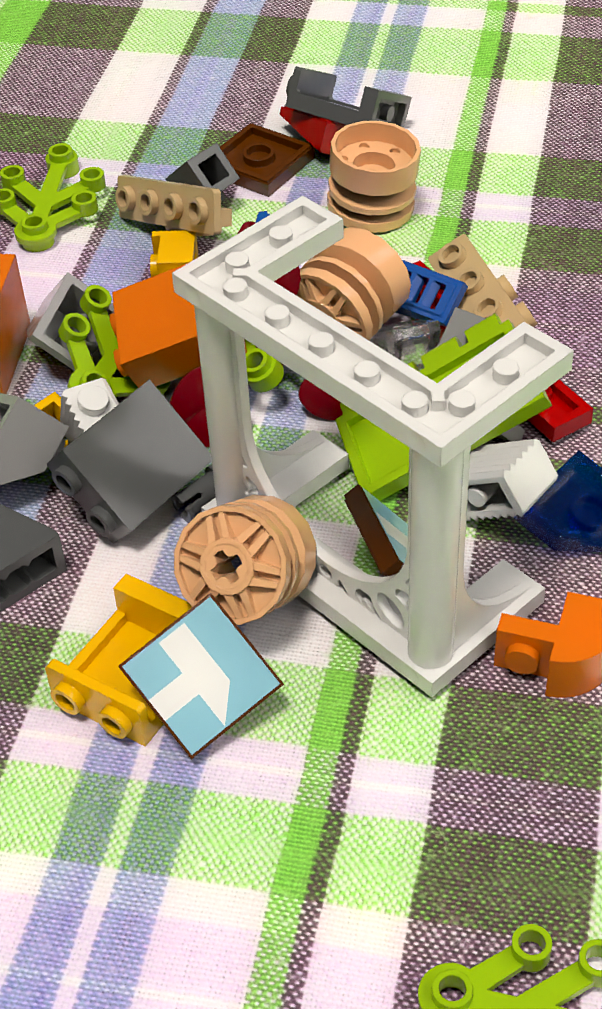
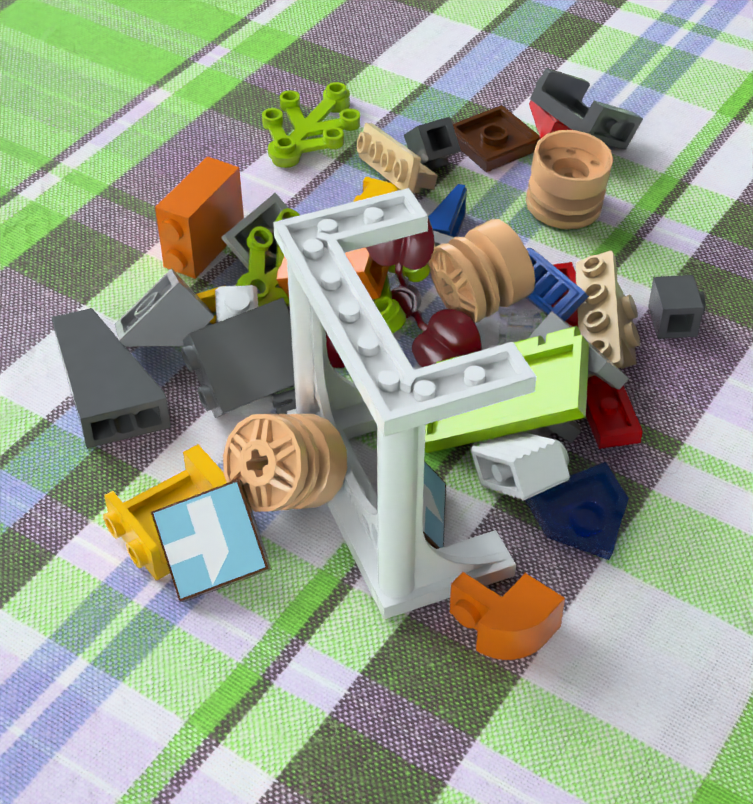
camera: 20 degrees right, 0 degrees up
(550, 275) = (676, 306): none -> dark grey brick

